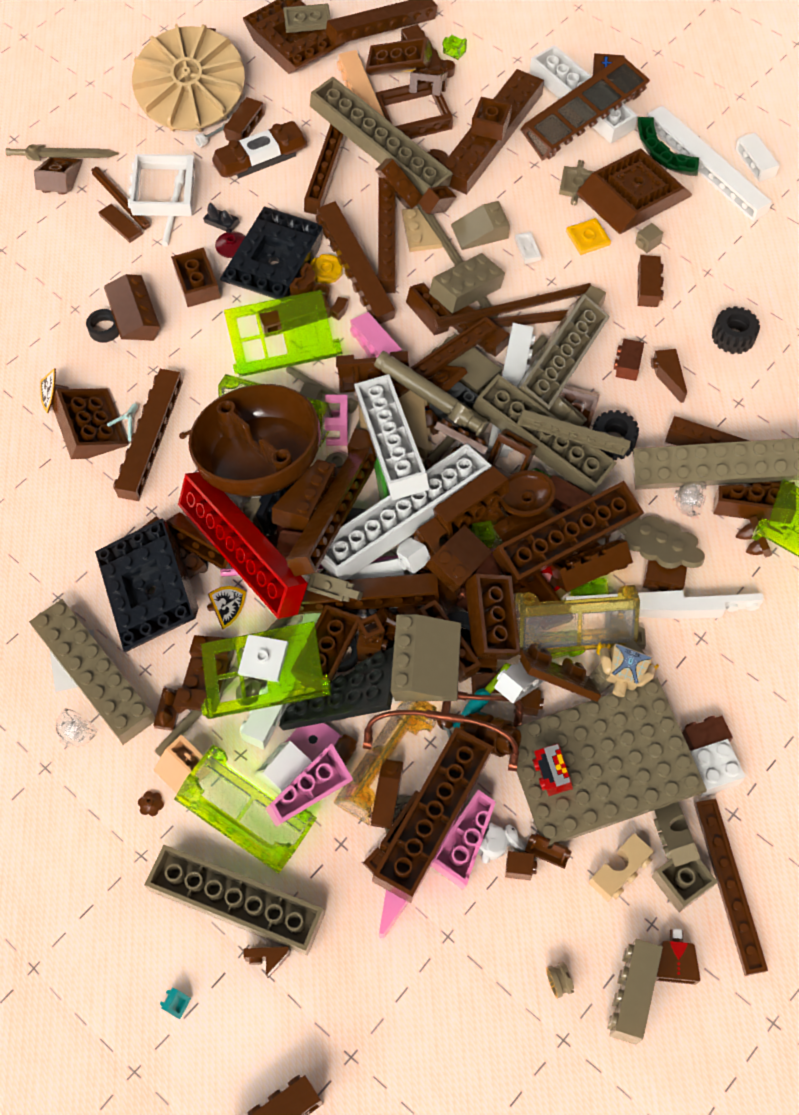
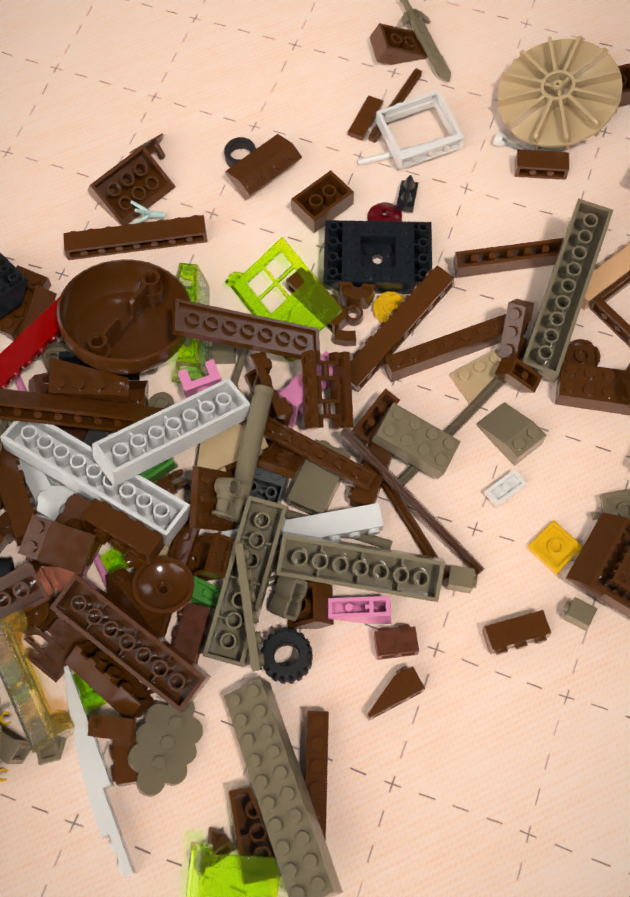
camera: 70 degrees right, 5 degrees up
(259, 150) = (509, 193): piece -> none
(313, 357) = (243, 329): none -> reddish brown plate
(393, 324) = (339, 388): none -> reddish brown fence
(596, 368) = (361, 609): none -> bright pink slope
(638, 568) = (111, 727): none -> reddish brown slope
(690, 498) = (229, 762): clear cylinder -> none
(736, 319) = (498, 738): black tyre -> none

